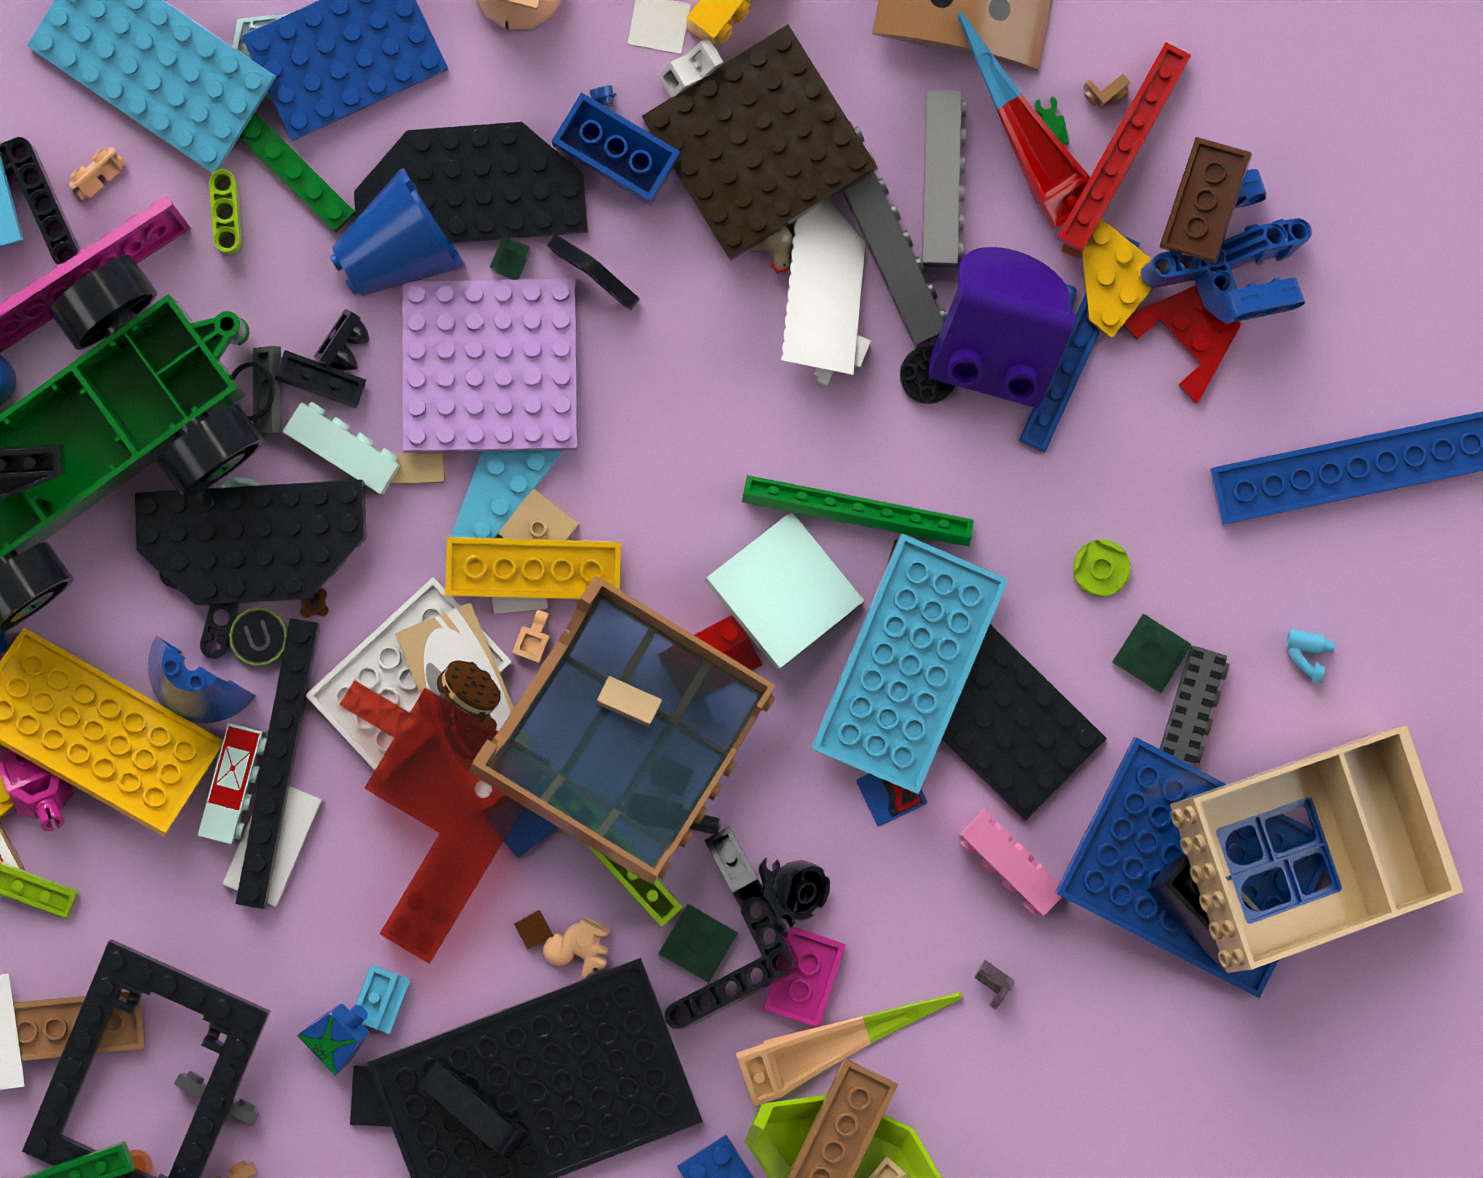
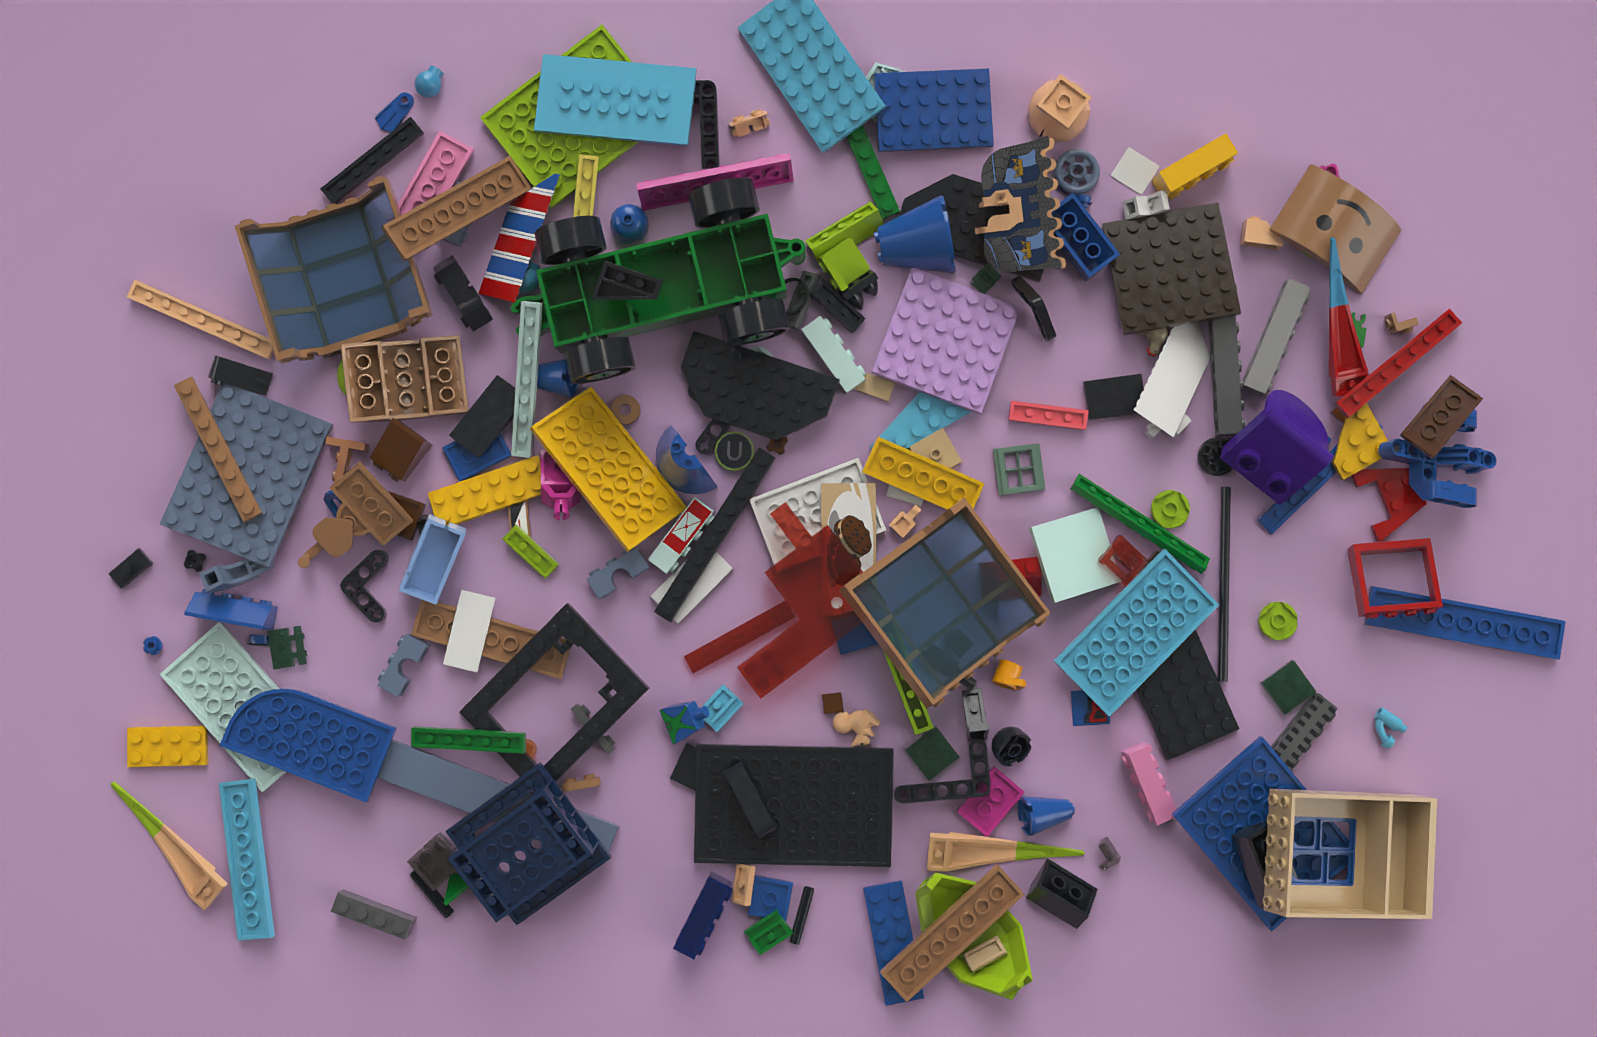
camera: 20 degrees right, 0 degrees up
(85, 625) = (635, 409): none -> medium nougat piece
(147, 889) = (602, 580): none -> sand blue arch
(219, 200) = (820, 170): lime beam -> none
(291, 273) = (856, 225): none -> lime panel
(305, 317) = (843, 264): none -> lime bracket
(368, 890) = (739, 636): none -> clear red plate
(538, 176) = (1026, 235): none -> animal
(557, 69) = (1088, 160): none -> sand blue plate
(629, 701) = (951, 585): tan tile -> none
(672, 412) = (1048, 415): none -> coral plate
(684, 490) = (1036, 467): none -> sand green piece
(749, 349) = (1112, 396): none -> black tile
(759, 794) = (1008, 675): none -> light orange piece
(769, 896) = (990, 743): black piece -> none
(855, 562) = (1127, 556): none -> clear red plate
(862, 47) = (1257, 234): none -> light nougat slope
(882, 962) = (1043, 813): none -> blue cone
(892, 473) = (1170, 509): none -> lime tile
(952, 1063) = (1062, 893): none -> black slope
(1007, 547) = (1224, 584): none -> black piece
(1214, 404) = (1364, 610): none -> red window

